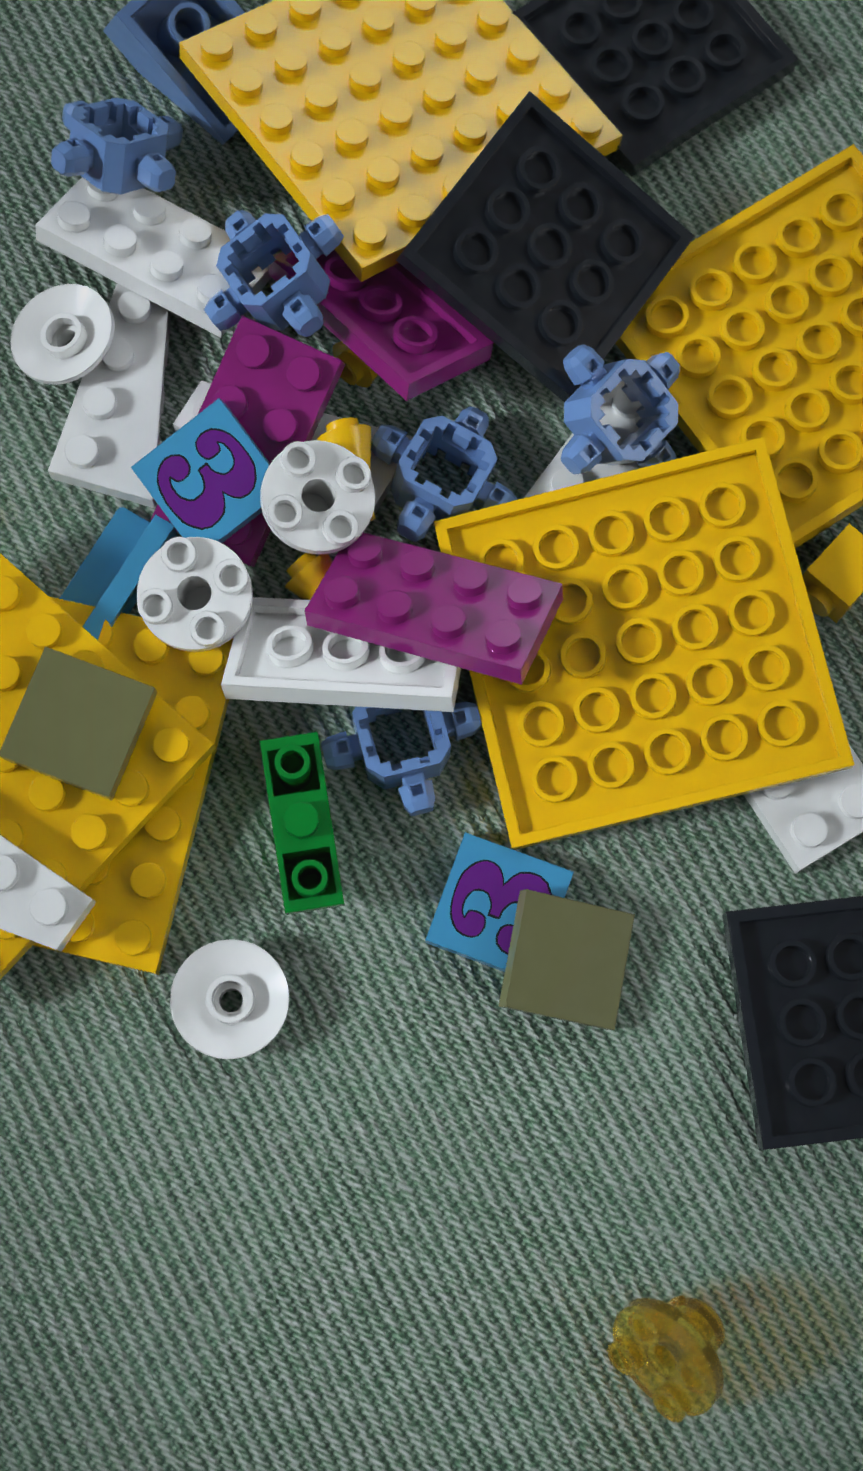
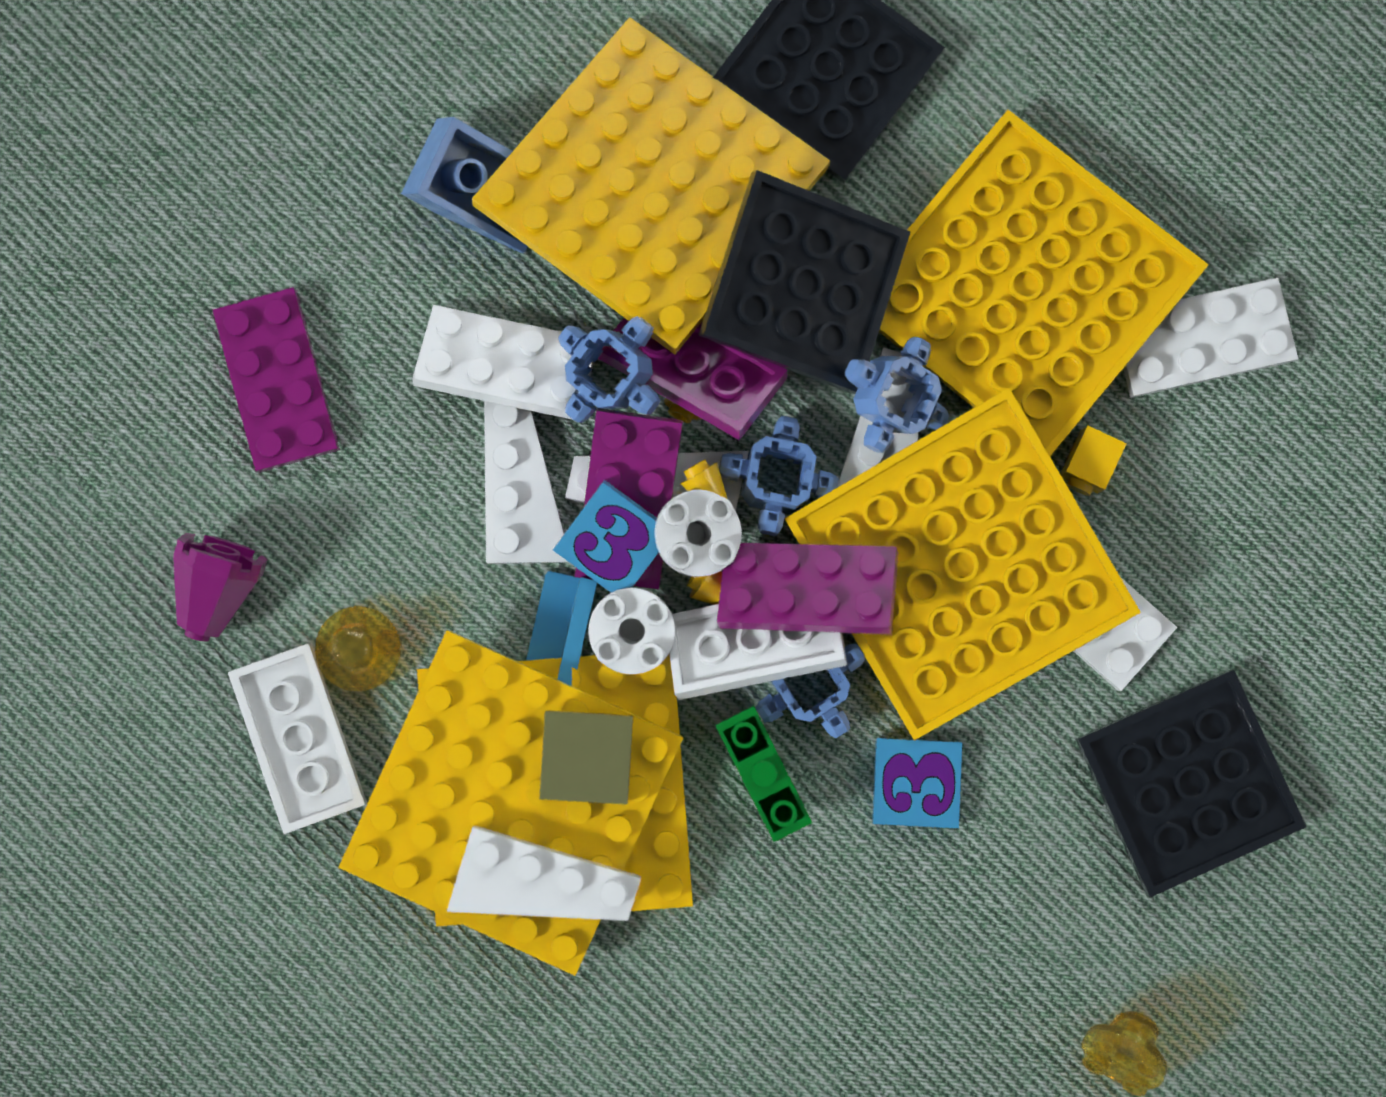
camera: 10 degrees left, 10 degrees up
(51, 322) = (442, 451): white dish -> none
(117, 146) = (457, 313): medium blue piece -> none
(204, 981) = (756, 931): white dish -> none
(566, 960) = (976, 808): olive tile -> none

